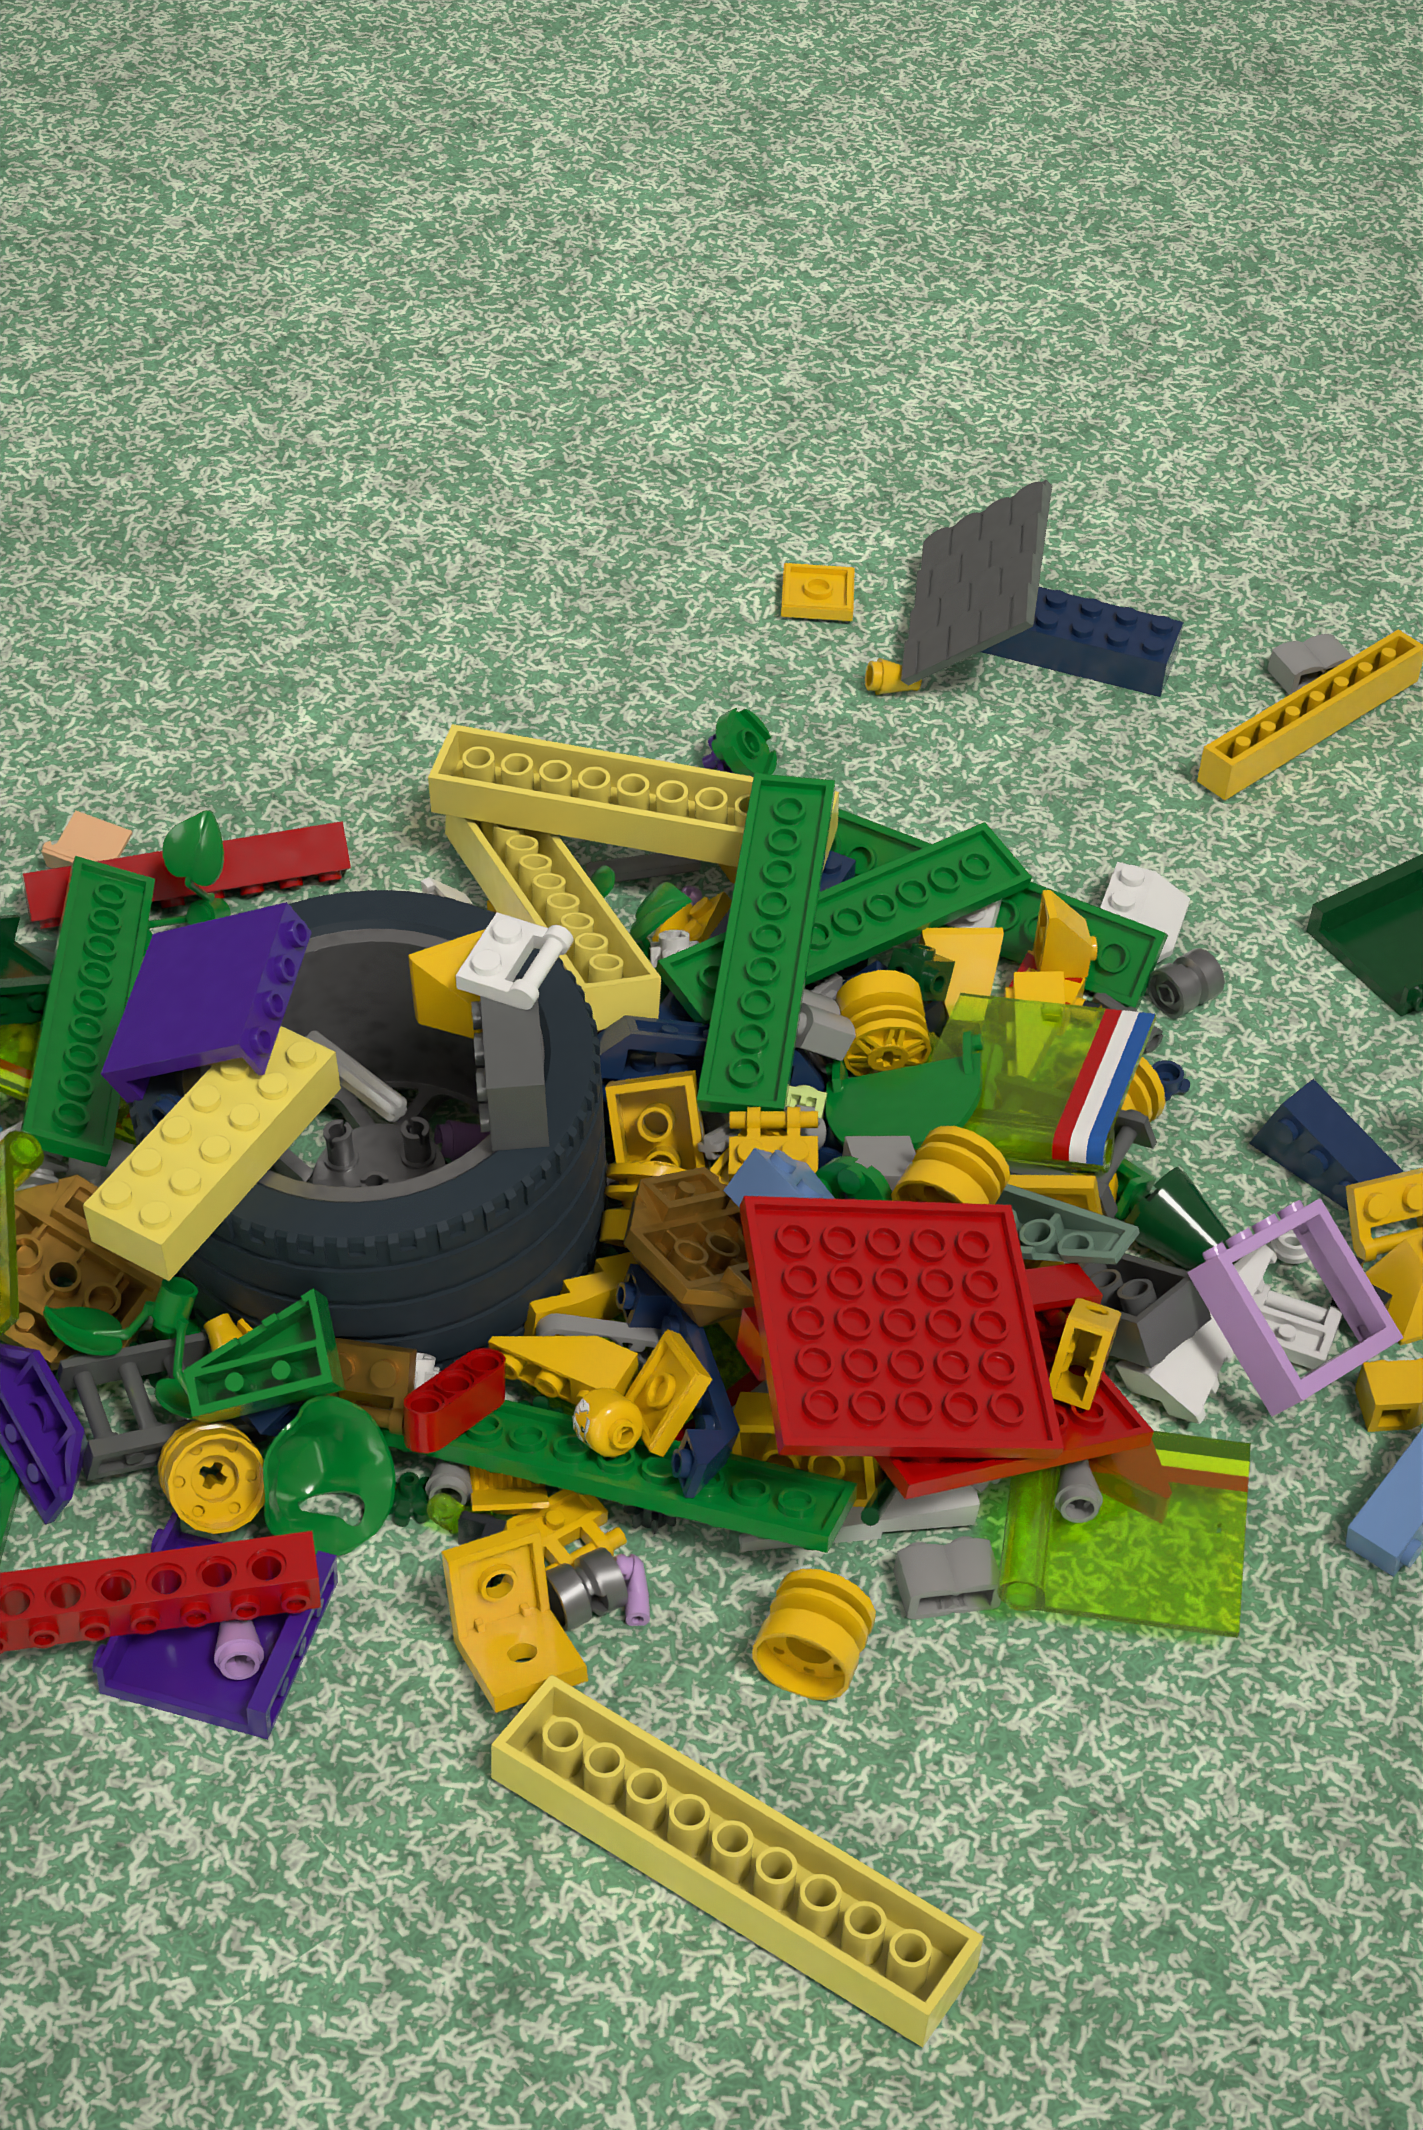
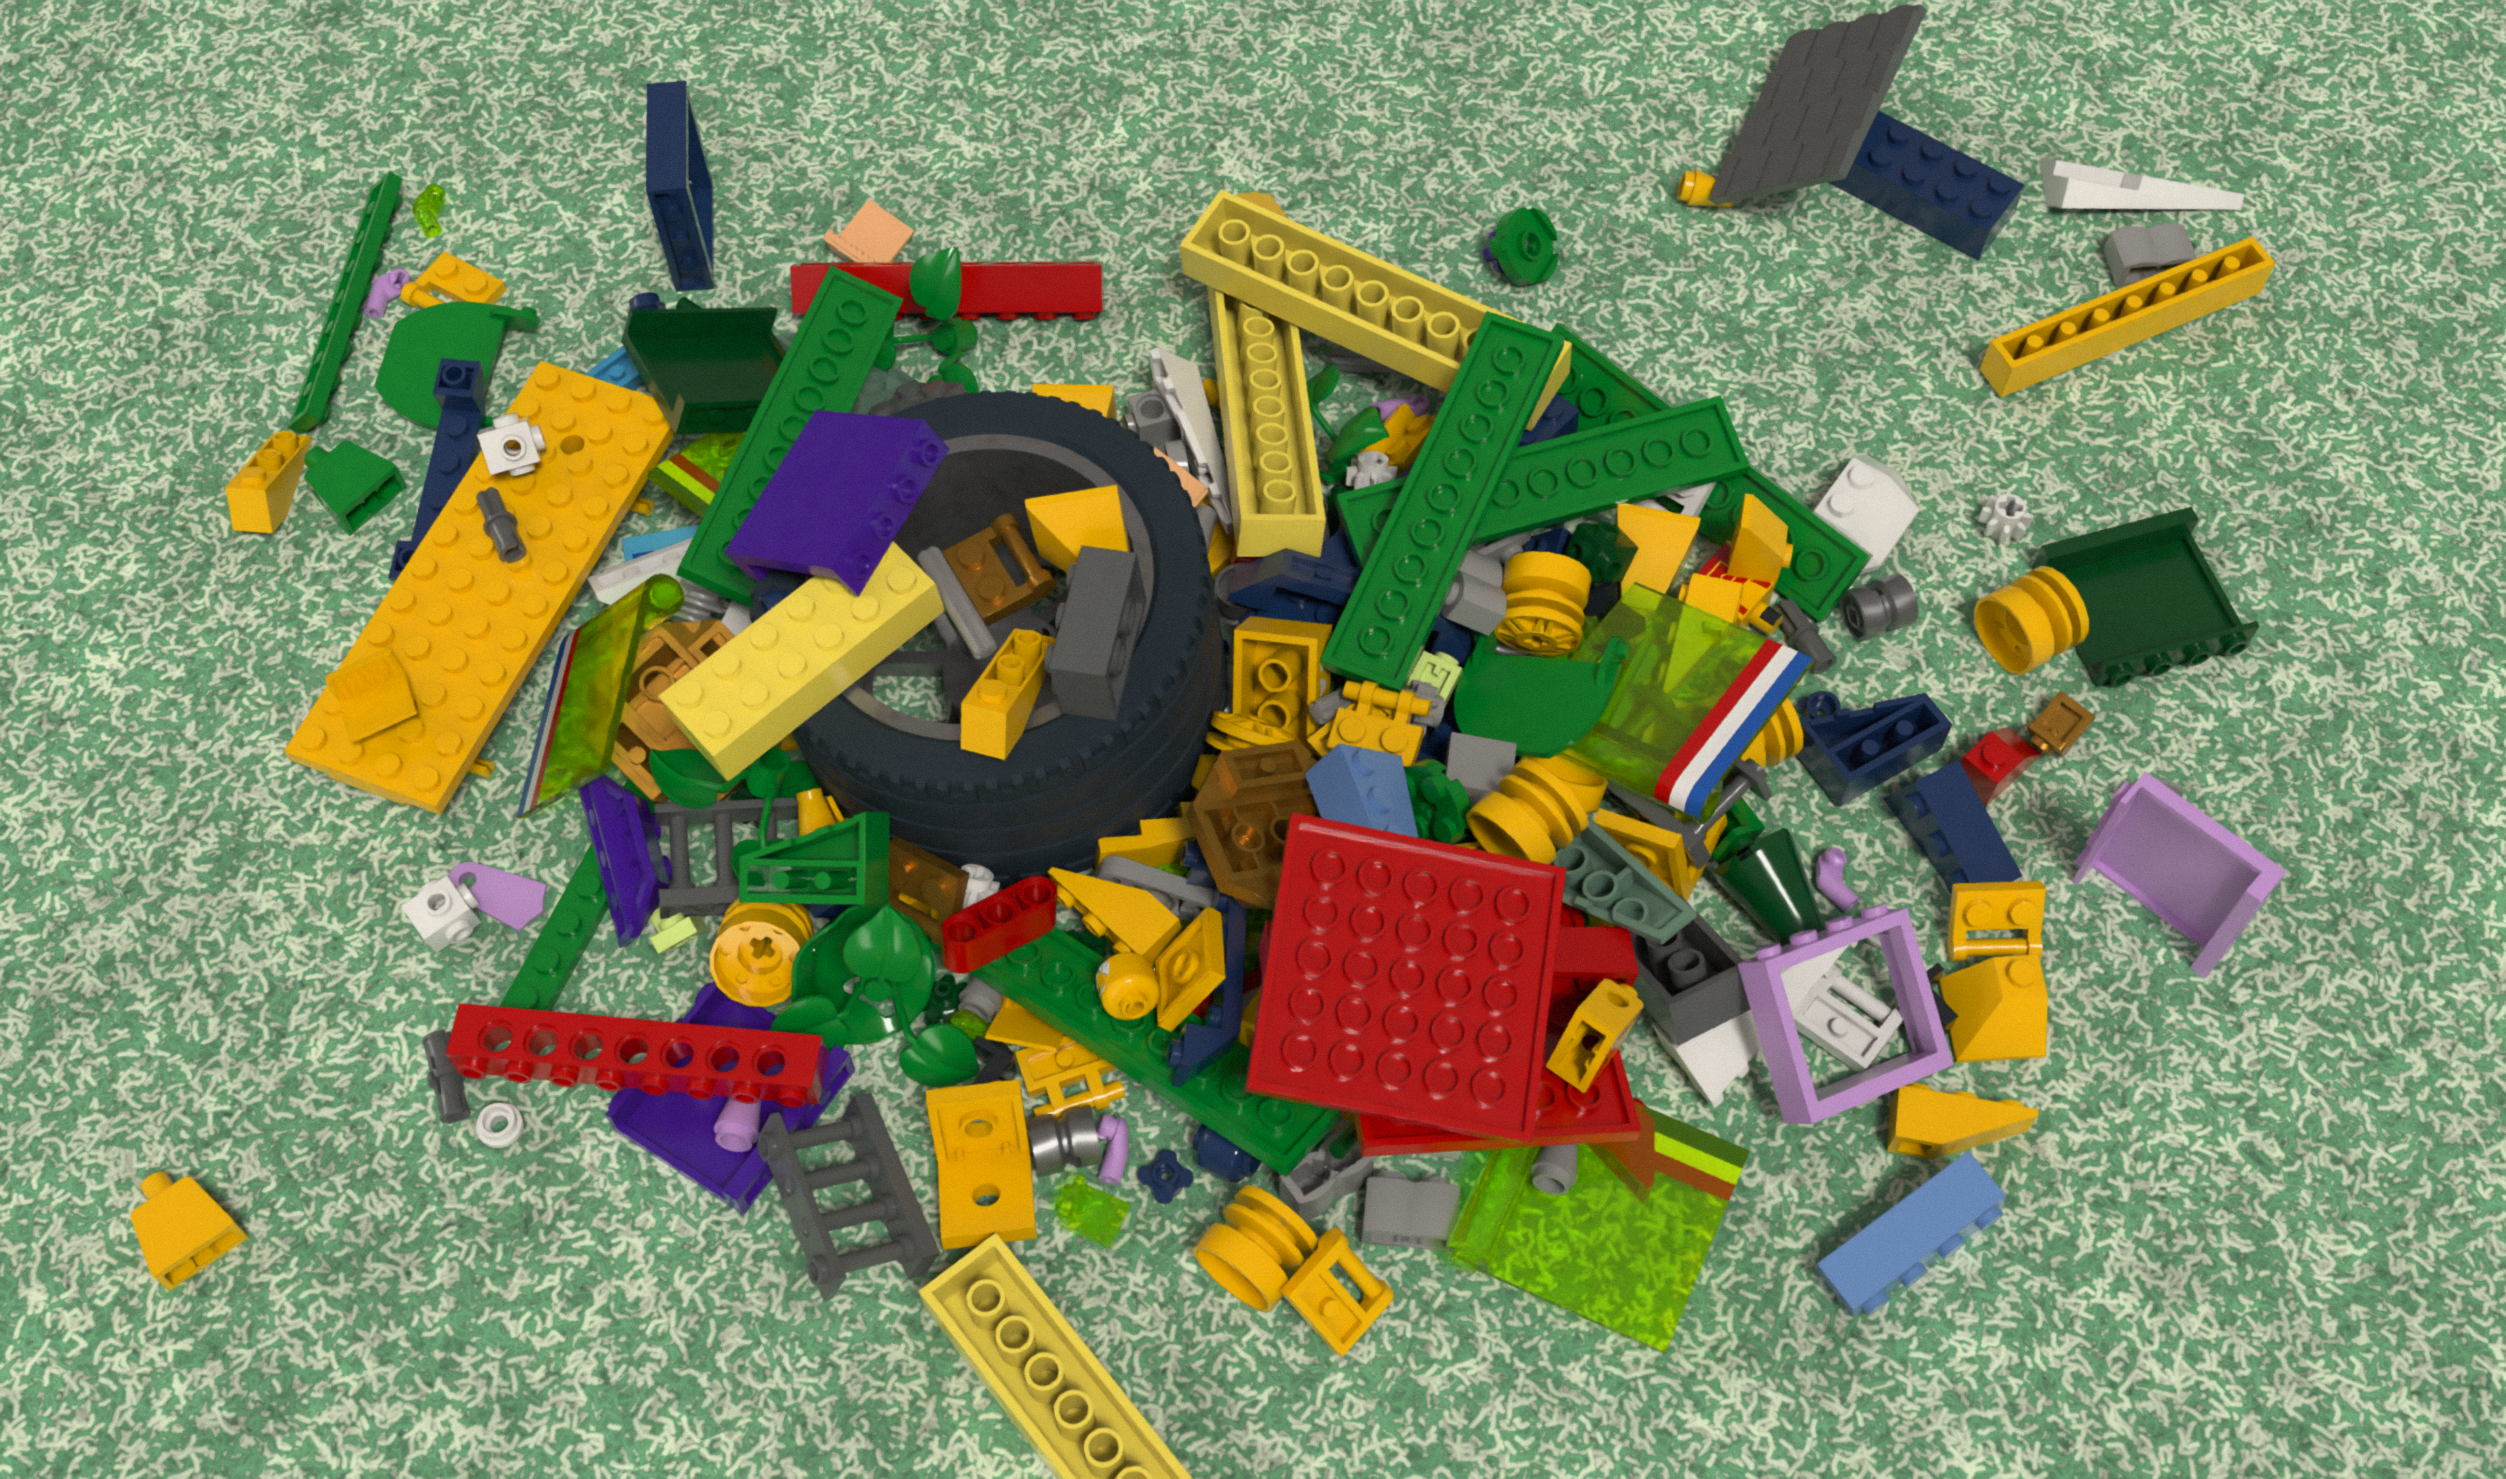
camera: 20 degrees right, 15 degrees up
(107, 1488) = (675, 931): none -> yellowish green bracket
(355, 1429) = (882, 954): none -> green plant
(378, 1049) = (986, 577): none -> pearl gold plate
(405, 1659) = (876, 1165): none -> dark grey fence
(434, 1141) = (1004, 695): none -> yellow slope
(501, 955) = (1108, 522): white plate -> none
(631, 1651) = (1091, 1212): none -> clear neon green bracket
(694, 1613) = (1165, 1189): none -> dark blue plate
(749, 1562) = (1222, 1157): none -> dark blue head
(818, 592) = (1664, 75): yellow plate -> none
(863, 1551) = (1321, 1178): none -> light grey brick
(898, 1665) = (1327, 1303): none -> yellow plate
(1223, 1096) = (1871, 745): none -> dark blue wedge
(1226, 1210) = (1830, 879): none -> lavender arm
(1237, 621) = (2099, 188): none -> white wedge
(1269, 892) = (2005, 517): none -> white gear
(1327, 964) = (2031, 620): none -> yellow wheel
(1345, 1084) = (1997, 762): none -> red slope
(1384, 1049) = (2059, 725): none -> pearl gold bracket

